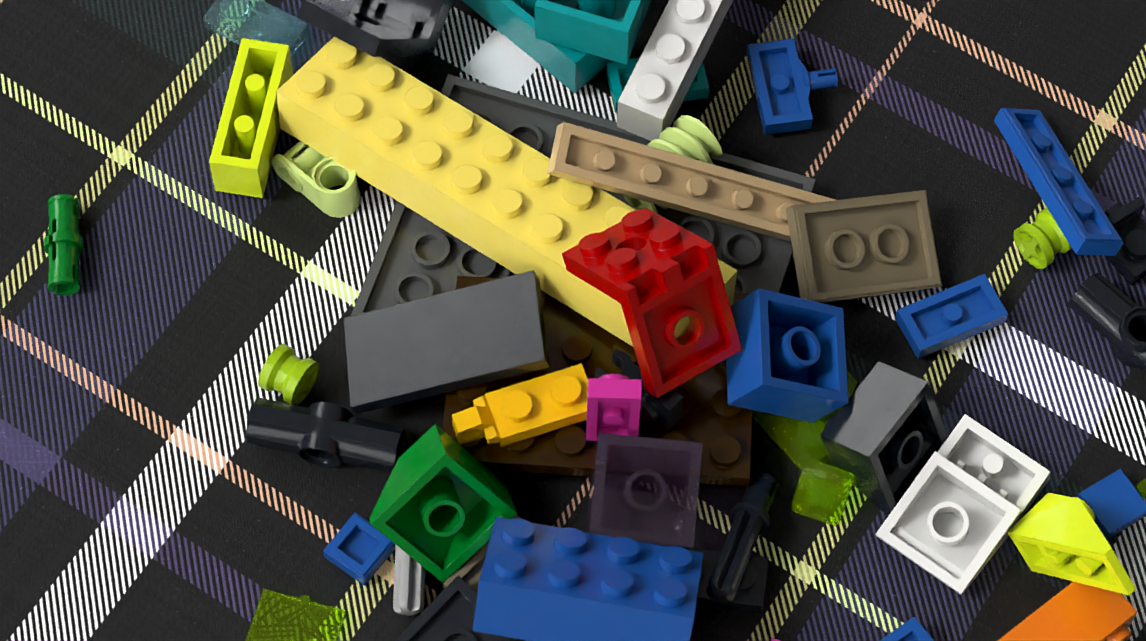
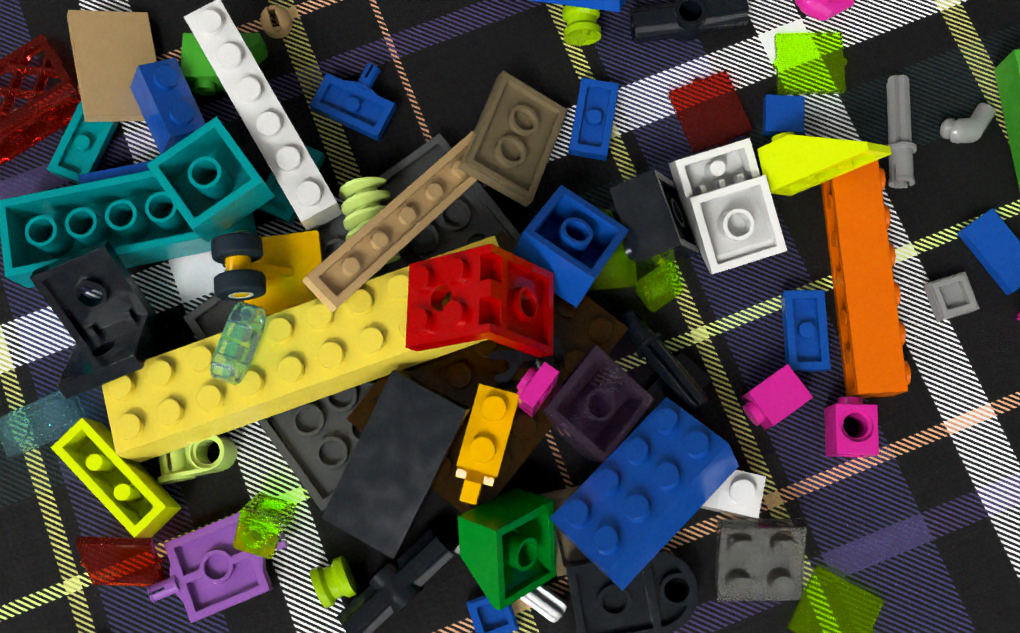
camera: 50 degrees left, 15 degrees up
(176, 174) = (120, 561): none -> clear red piece
(230, 264) = (211, 572): none -> medium lavender plate
(299, 269) = (262, 524): none -> clear neon green bracket
(457, 114) = (238, 343): none -> clear light blue beam
(543, 95) = (267, 268): none -> yellow plate
(1058, 428) = (709, 111): none -> clear red piece

